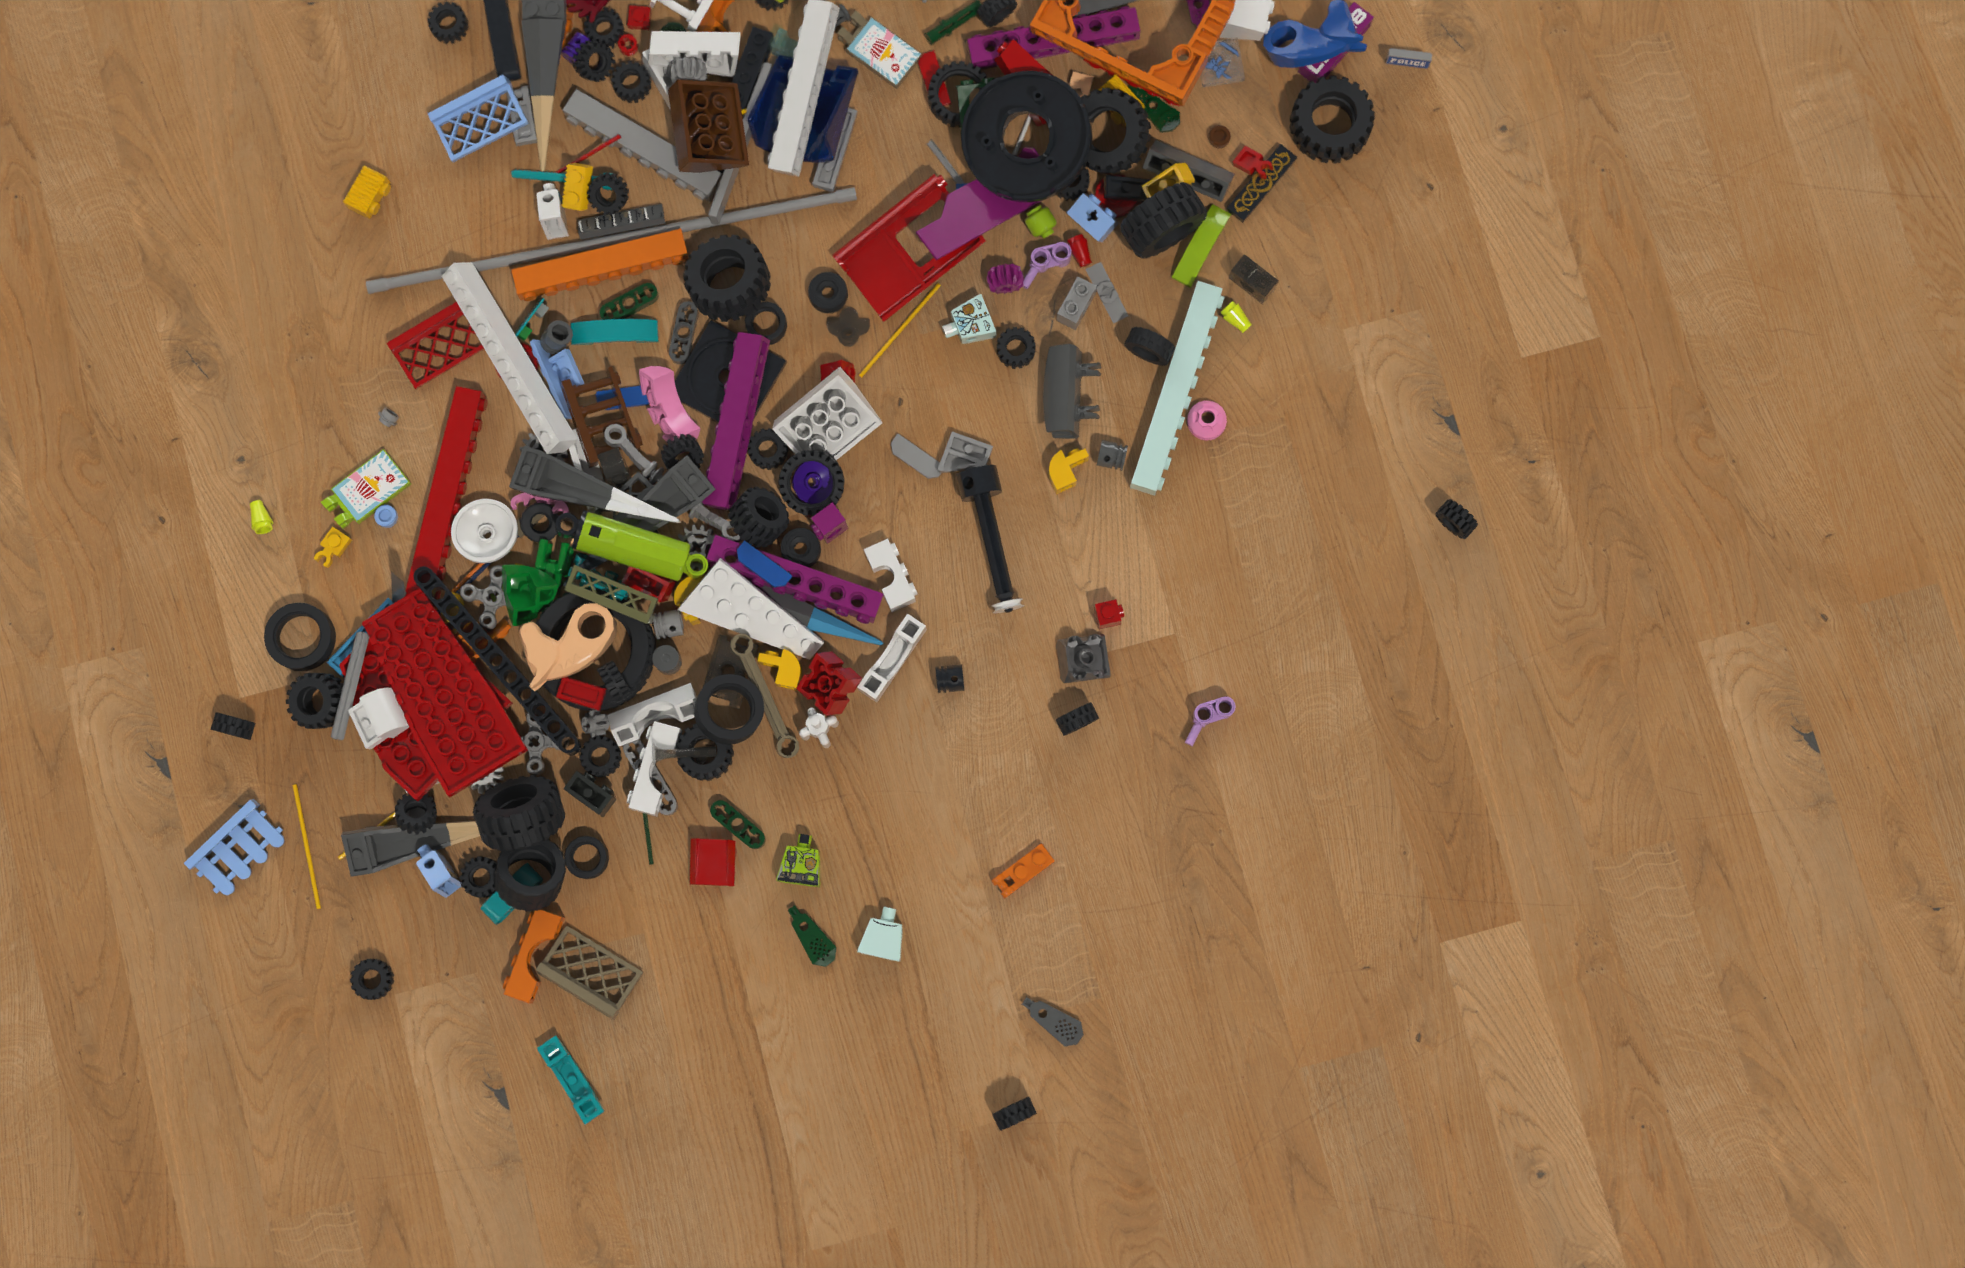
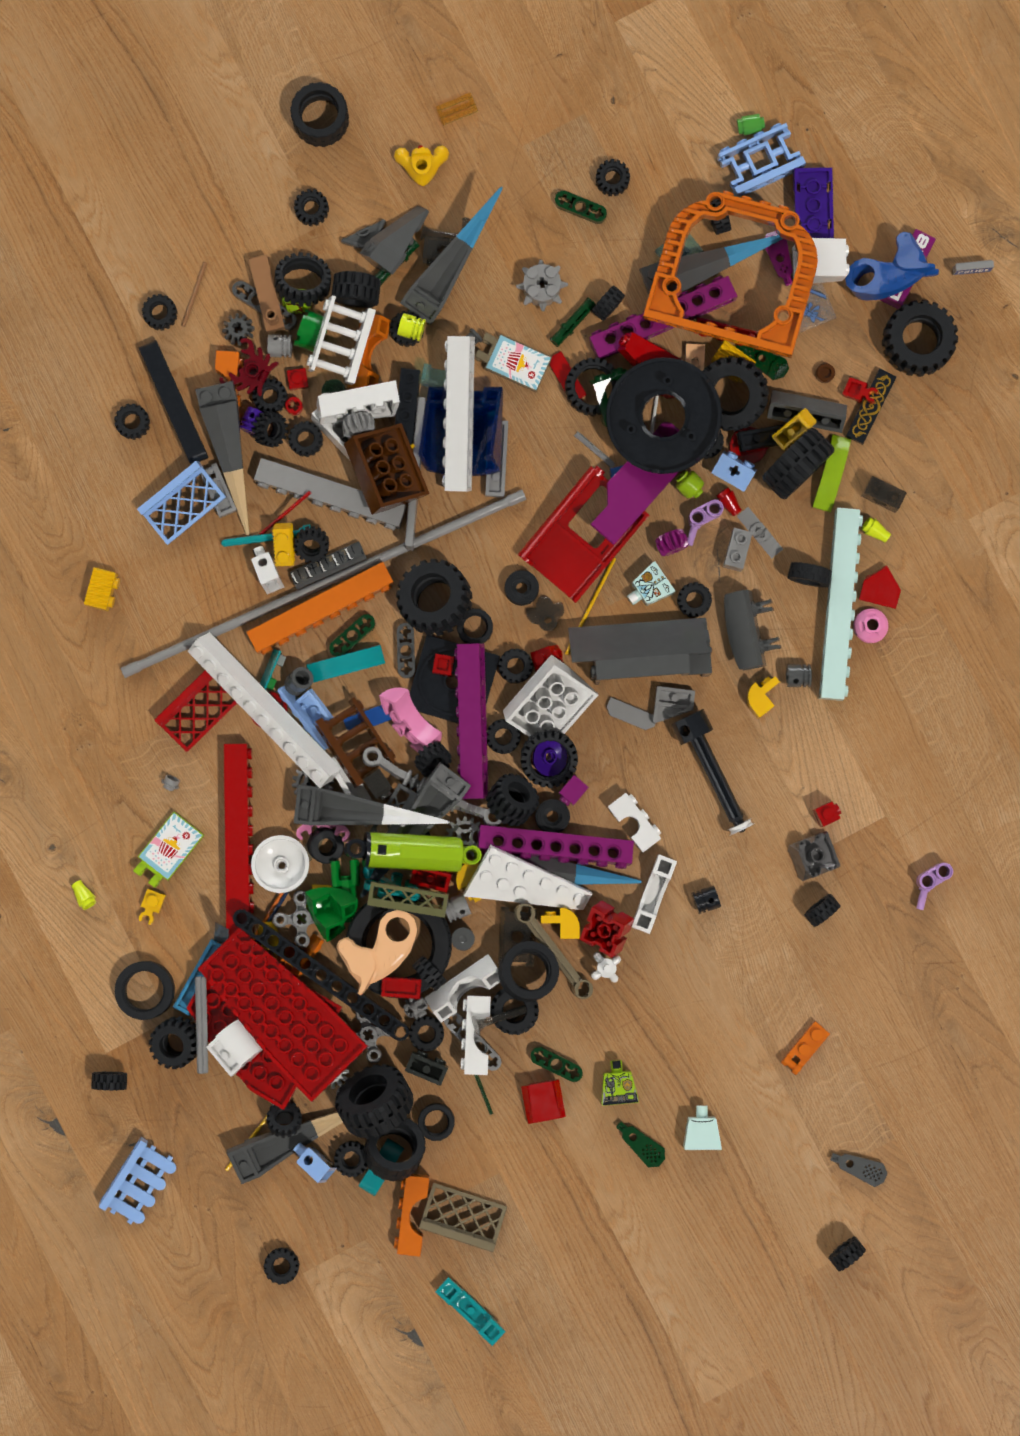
camera: 15 degrees left, 5 degrees up
(306, 845) = (196, 1166): yellow axle -> none
(386, 516) = (190, 868): light blue tile -> none
(720, 355) = (443, 665): none -> red tile
(762, 566) = (527, 842): blue piece -> none
(797, 362) = (524, 657): none -> black tyre
(945, 384) = (643, 649): none -> dark grey panel
(1227, 382) = (881, 588): none -> red slope

